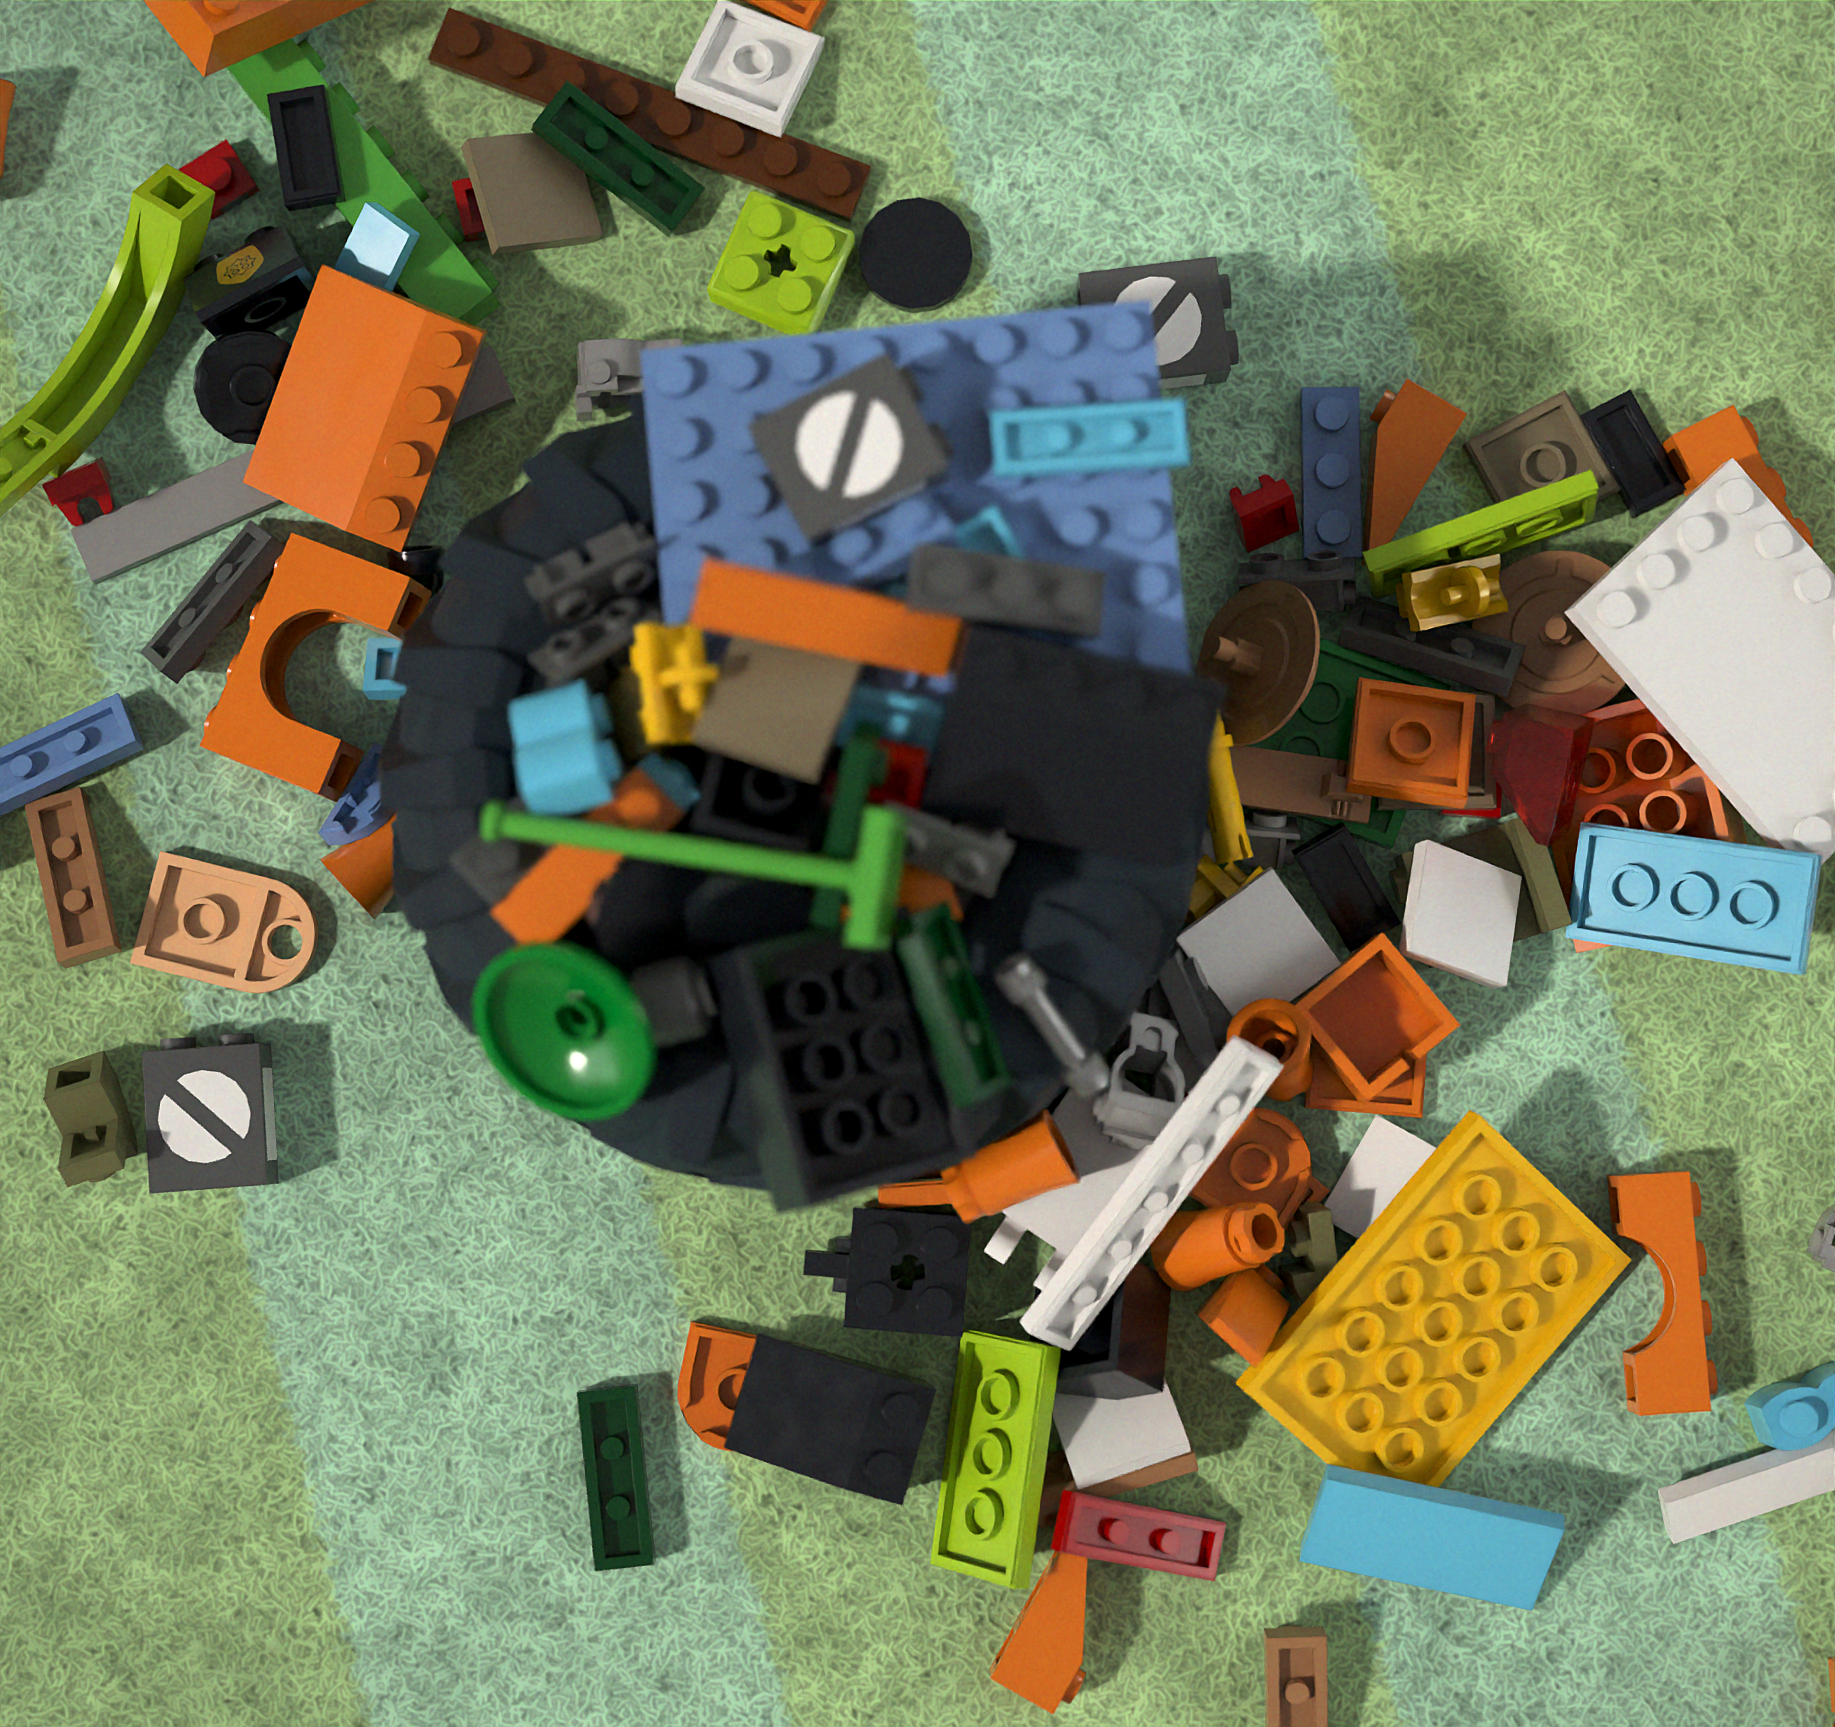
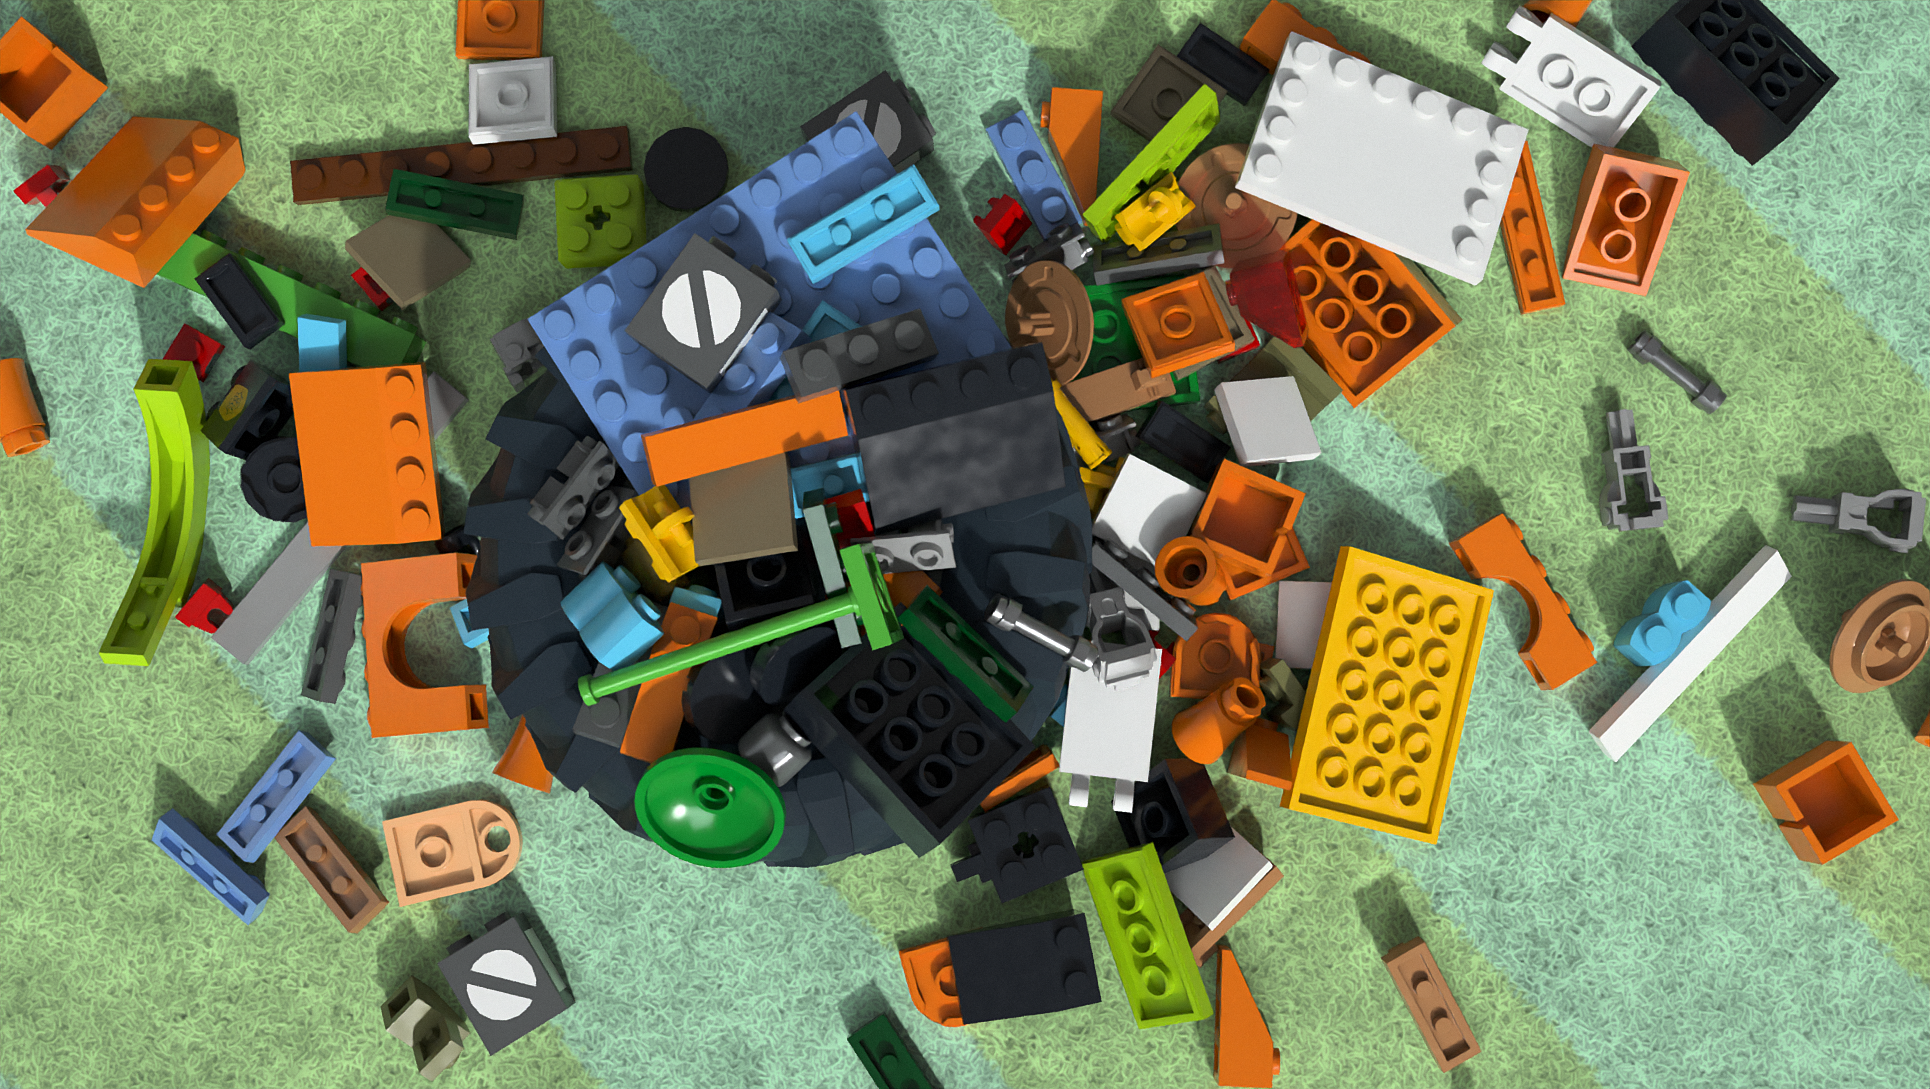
camera: 30 degrees left, 0 degrees up
(359, 807) = (498, 728): medium blue tile -> none
(1012, 1169) = (1061, 742): orange plant -> none
(1138, 1535) = (1266, 939): red tile -> none
(1151, 1193) = (1161, 709): white tile -> none
(1431, 1537) = (1458, 840): medium azure tile -> none
(1694, 897) = (1414, 331): medium azure tile -> none

